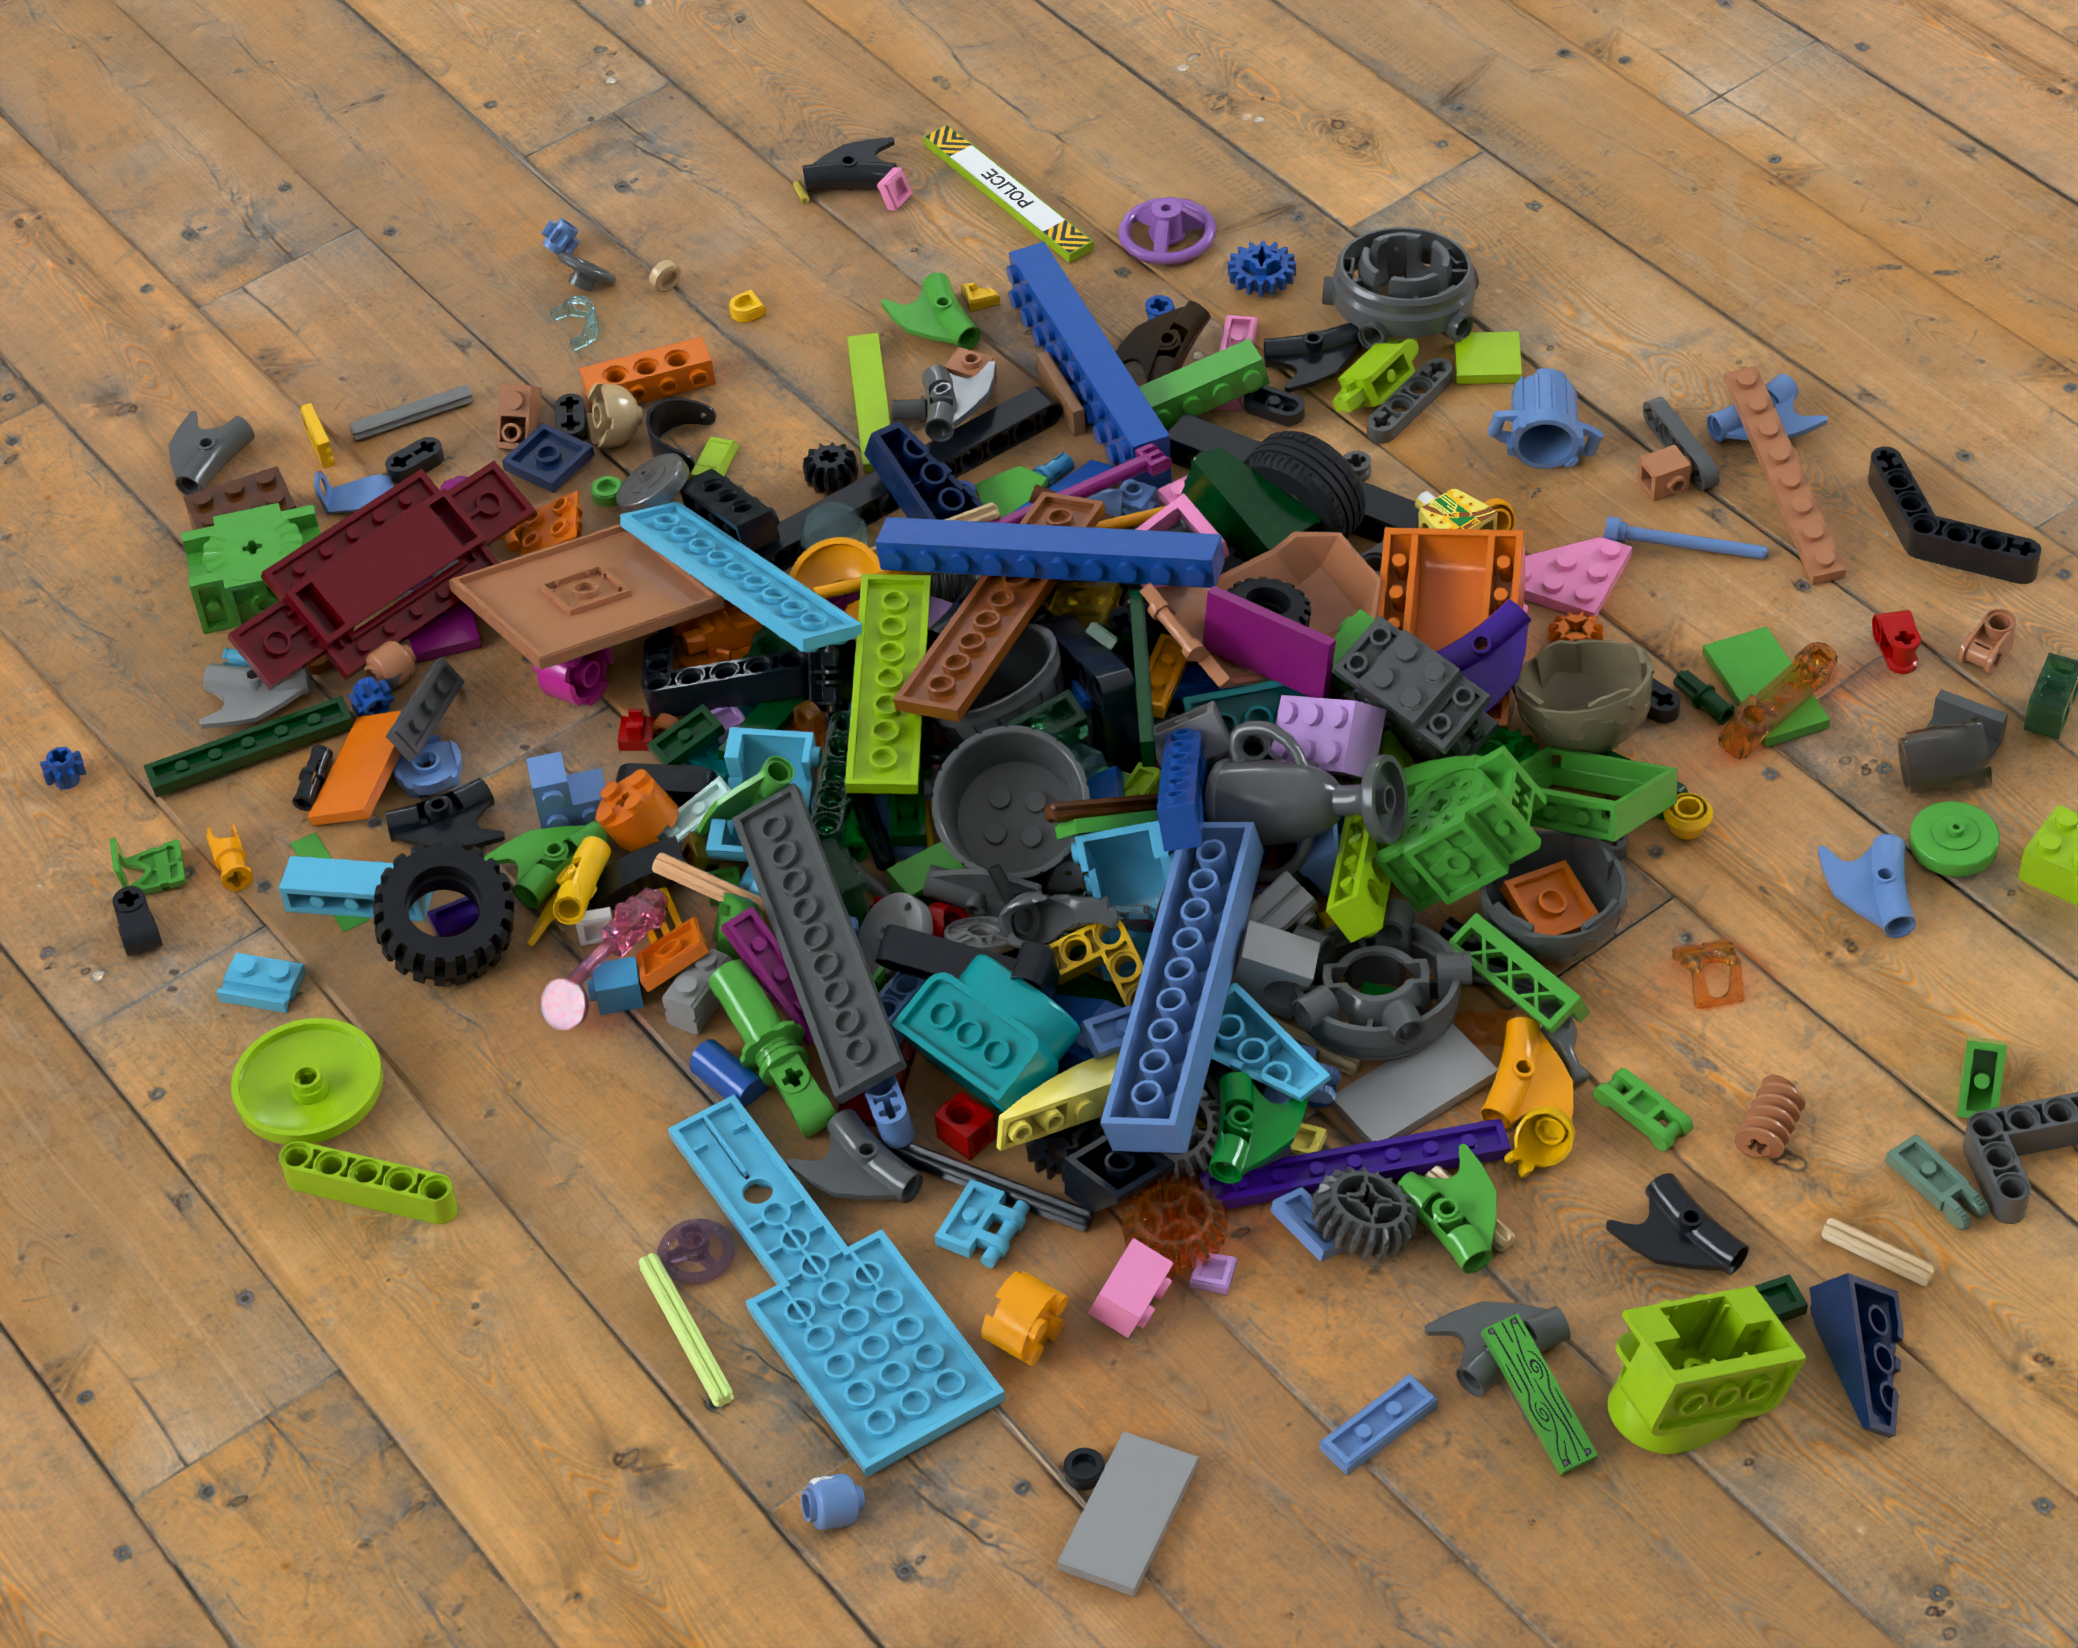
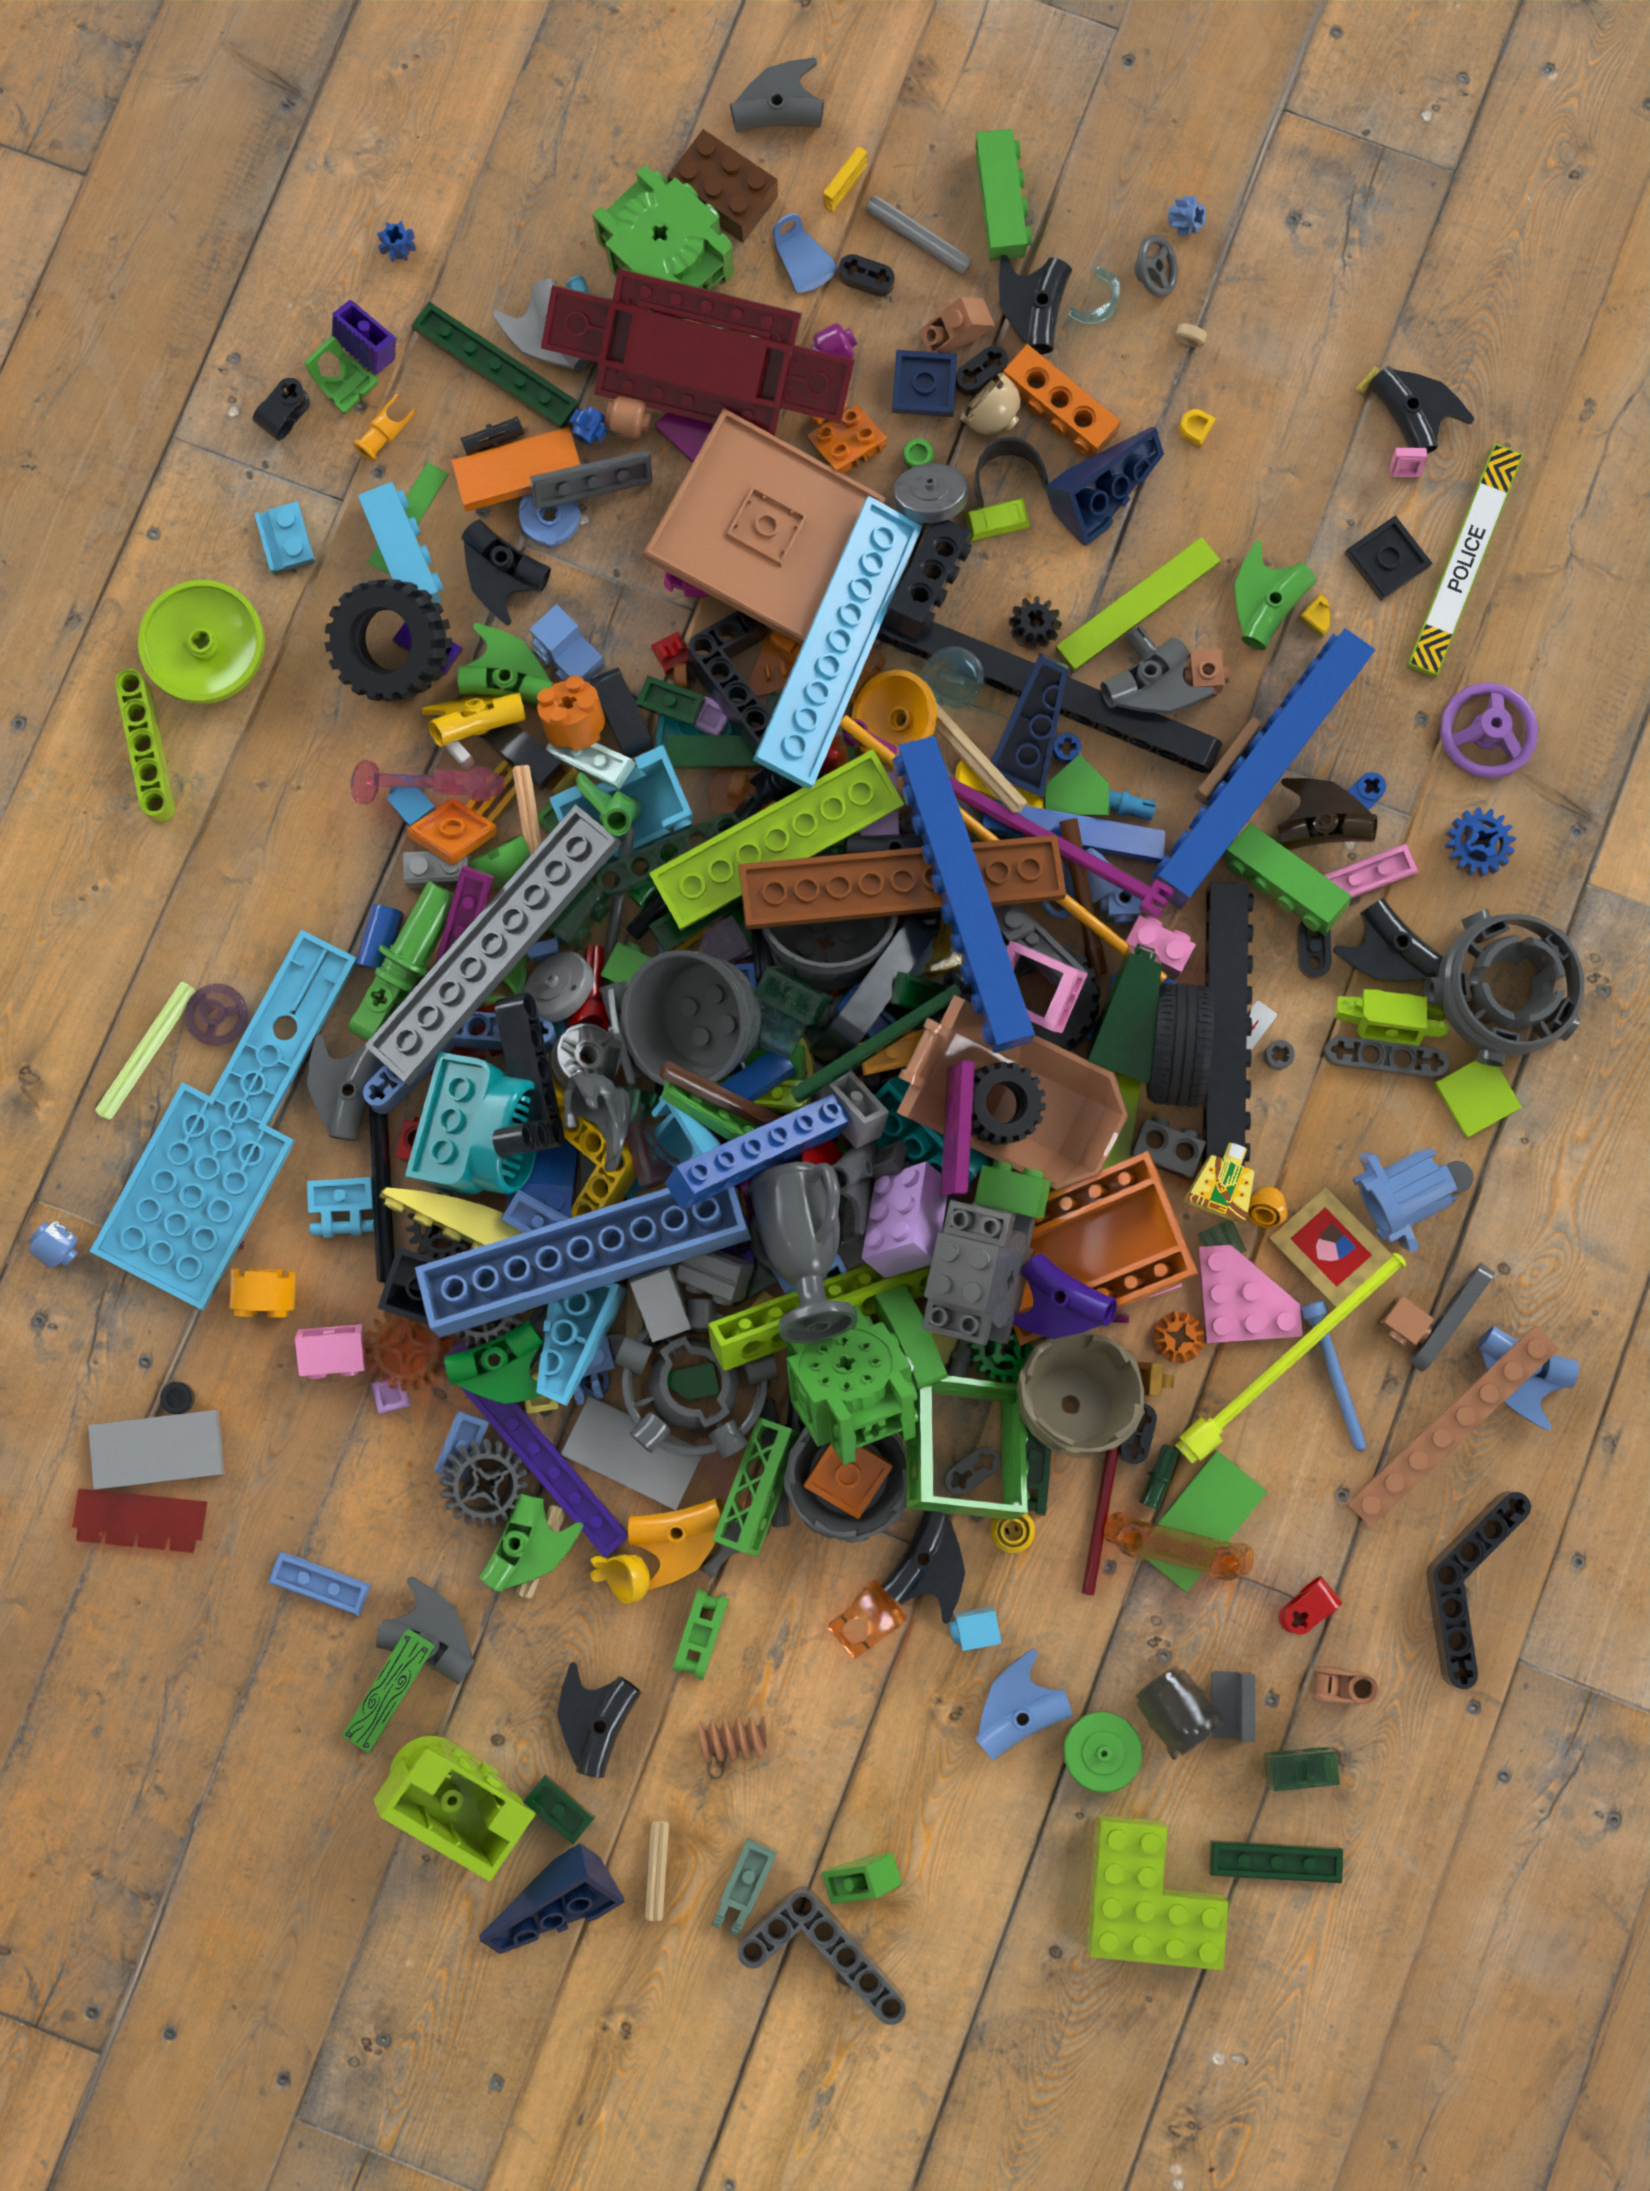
camera: 55 degrees right, 35 degrees up
(133, 823) = (363, 337): none -> dark purple brick
(431, 339) = (1001, 194): none -> bright green brick
(540, 357) = (1033, 301): none -> black pin
(742, 383) = (1096, 488): none -> dark blue wedge
(965, 236) = (1388, 558): none -> black tile
(1189, 1568) = (131, 1514): none -> clear red windscreen
(1585, 491) = (1341, 1263): none -> flag
(1683, 894) = (942, 1572): none -> black pin
(1718, 756) = (1100, 1519): none -> dark red bar
(1770, 871) = (975, 1628): none -> medium azure brick

